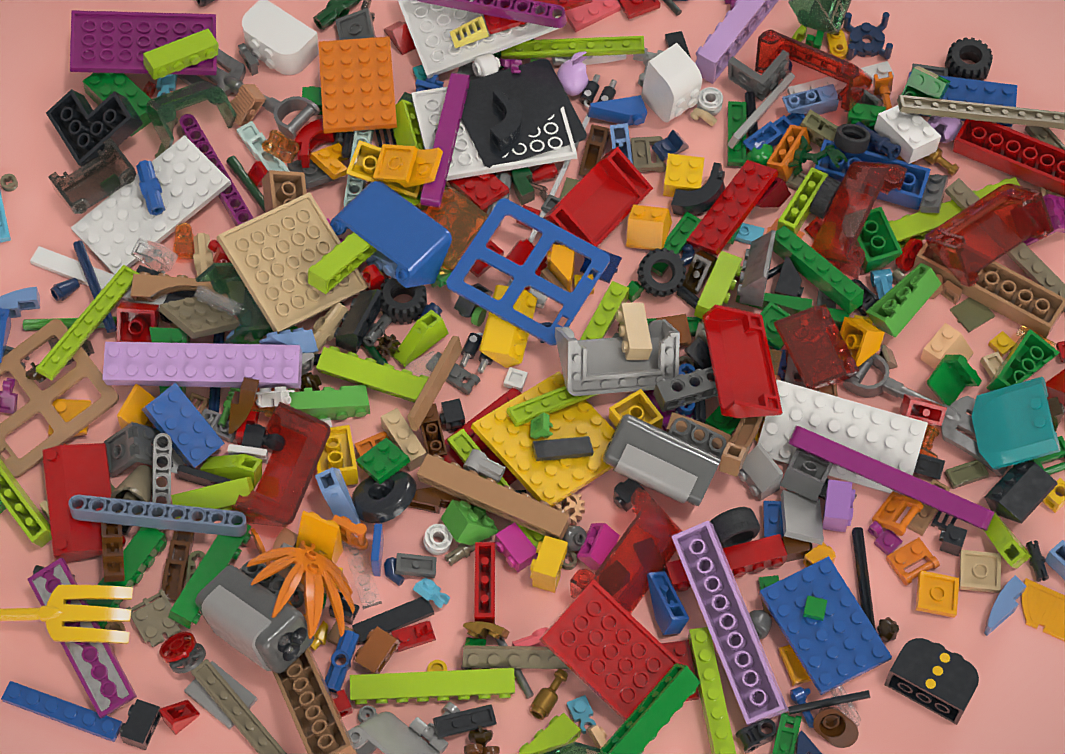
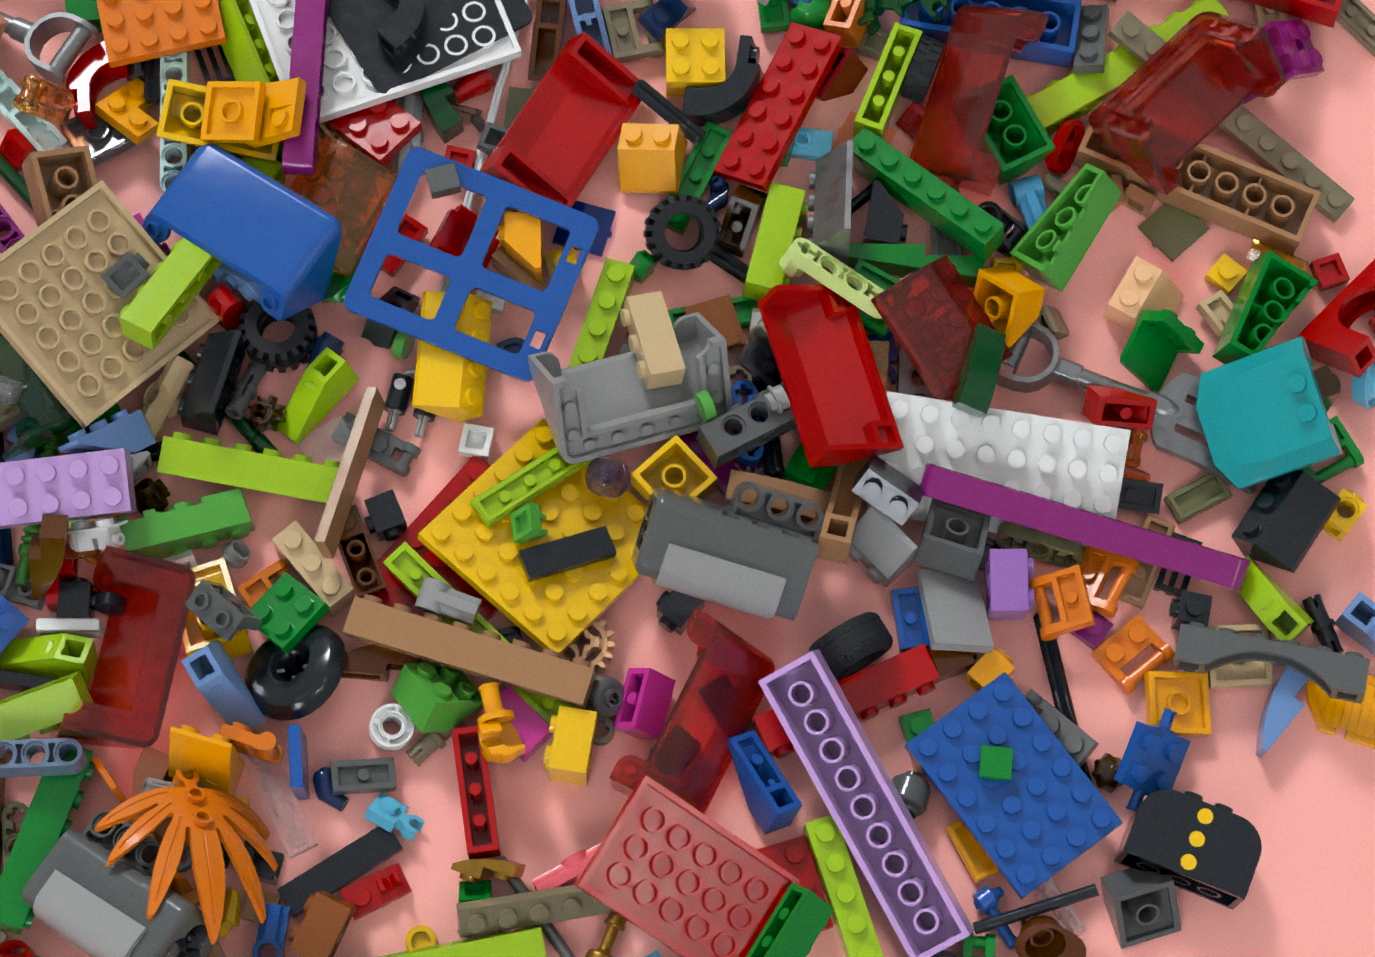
camera: 10 degrees left, 10 degrees up
(316, 247) = (126, 273): none -> dark grey bracket
(343, 451) = (221, 610): none -> dark grey bracket
(357, 424) = (236, 553): none -> light grey plate
(503, 548) = (496, 733): none -> light orange piece
(518, 219) = (443, 181): none -> dark grey slope
(594, 407) = (608, 476): none -> head
(661, 371) = (705, 405): none -> bright green tile
(662, 201) = (668, 111): none -> black axle
(706, 373) = (776, 399): none -> light grey plate
(738, 293) = (809, 258): none -> yellowish green beam
(769, 436) = (887, 489): none -> brick
(836, 374) = (980, 371): none -> dark green slope
(867, 603) = (1071, 736): none -> dark grey plate
(869, 484) = (1058, 550): none -> olive beam
(877, 521) = (1071, 601): none -> orange plate
(897, 712) = (1140, 905): none -> dark grey slope
(916, 620) = (1151, 759): none -> blue plate
(959, 561) = (1335, 673): none -> dark grey arch

